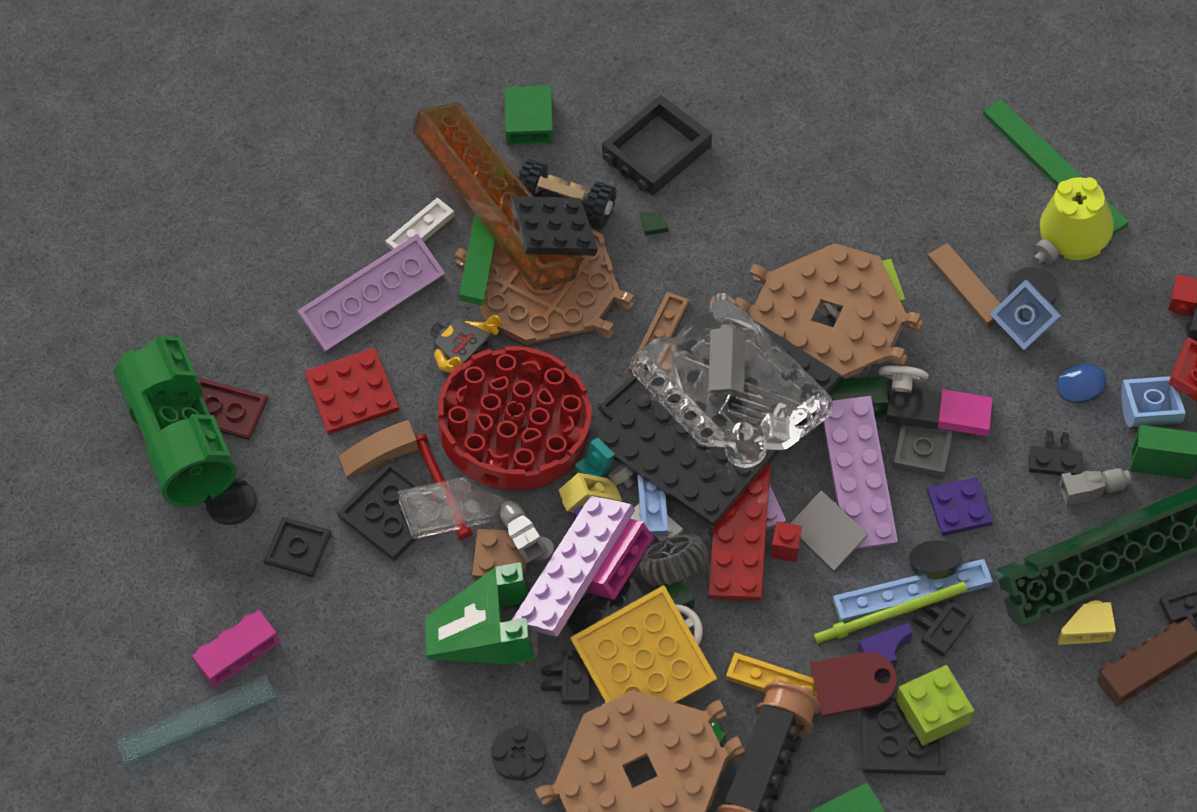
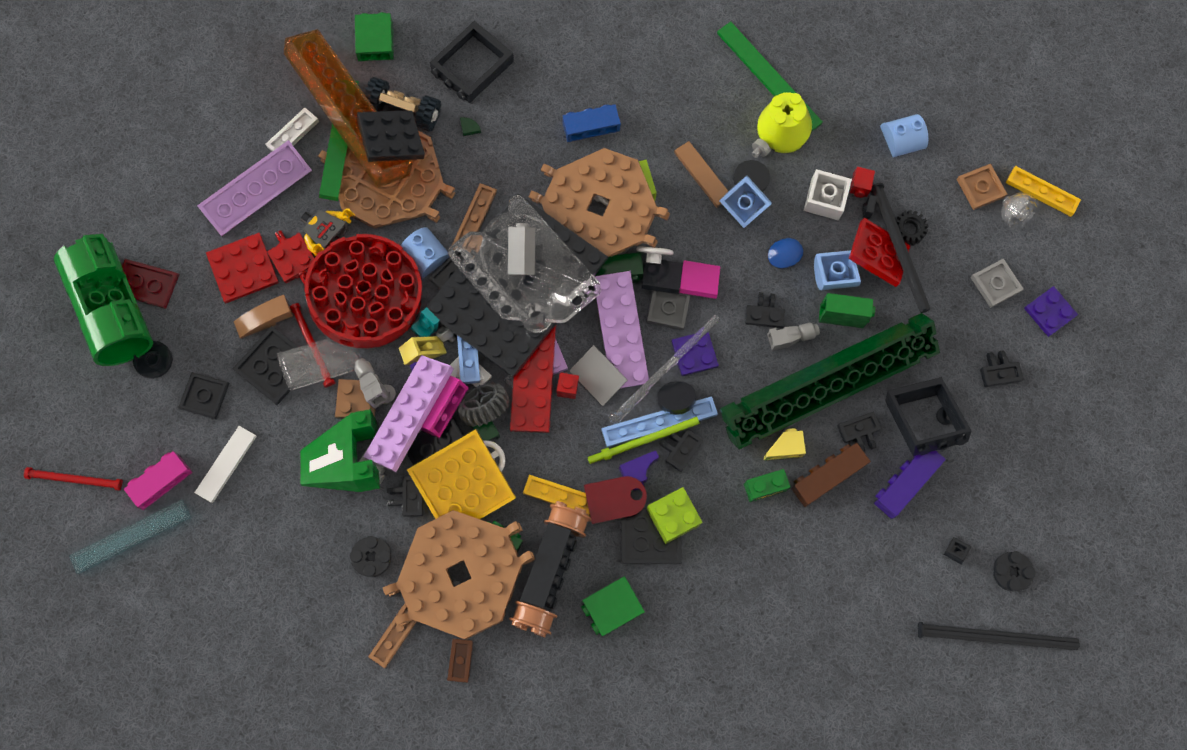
camera: 10 degrees left, 15 degrees up
(120, 645) = (30, 473): none -> red bar
(324, 632) = (225, 464): none -> white tile
(417, 379) = (291, 257): none -> red plate
(596, 371) = (425, 251): none -> light blue brick
(815, 219) = (591, 122): none -> blue brick
(889, 551) = (643, 391): none -> clear bar
(1062, 673) = (766, 485): none -> green brick
(1137, 309) = (827, 194): none -> white brick

